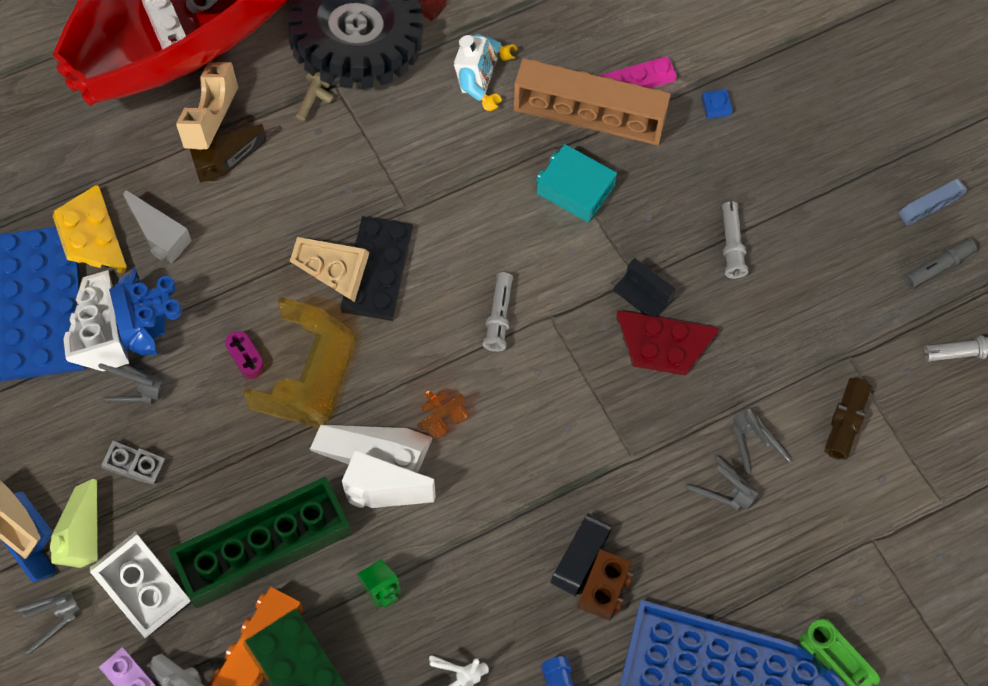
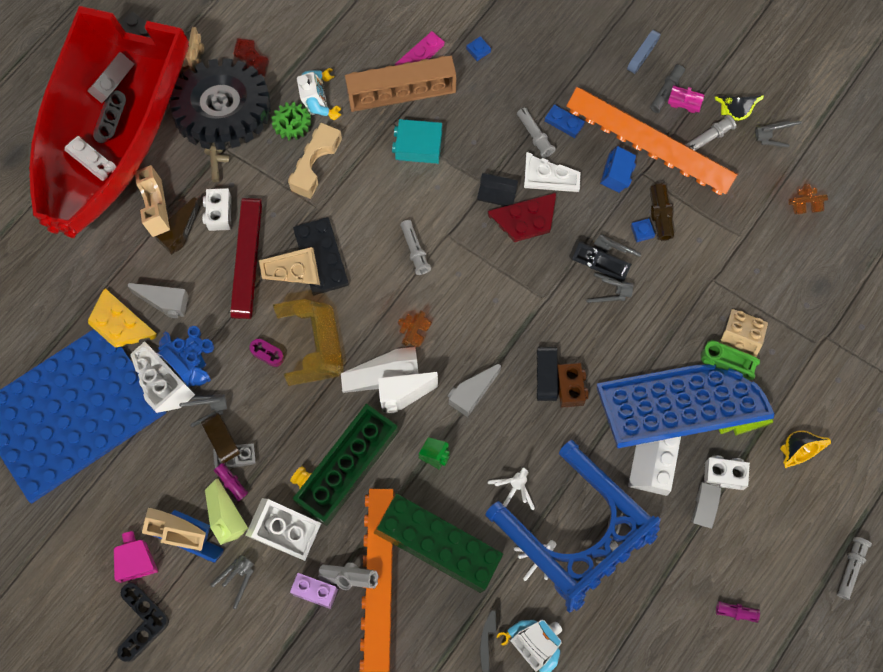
camera: 25 degrees left, 5 degrees up
(110, 491) = (230, 481): none -> magenta pin
(126, 431) = (220, 438): none -> dark brown beam
(196, 526) = (300, 476): none -> yellow wheel
(284, 228) = (246, 258): none -> dark red beam
(289, 154) = (220, 209): none -> white brick
(431, 87) = (293, 126): none -> bright green gear
(458, 130) = (324, 141): none -> tan arch
(471, 528) = (469, 392): none -> light grey slope
(719, 301) = (548, 176): none -> white wing
(730, 442) = (600, 260): none -> black slope
(780, 243) = (564, 121): none -> blue plate
(810, 430) = (642, 230): none -> blue plate
(817, 336) = (618, 169): none -> blue brick
(878, 631) = (744, 333): none -> tan bracket
(884, 321) = (651, 140): none -> orange brick
(957, 287) = (686, 99): none -> dark pink hips

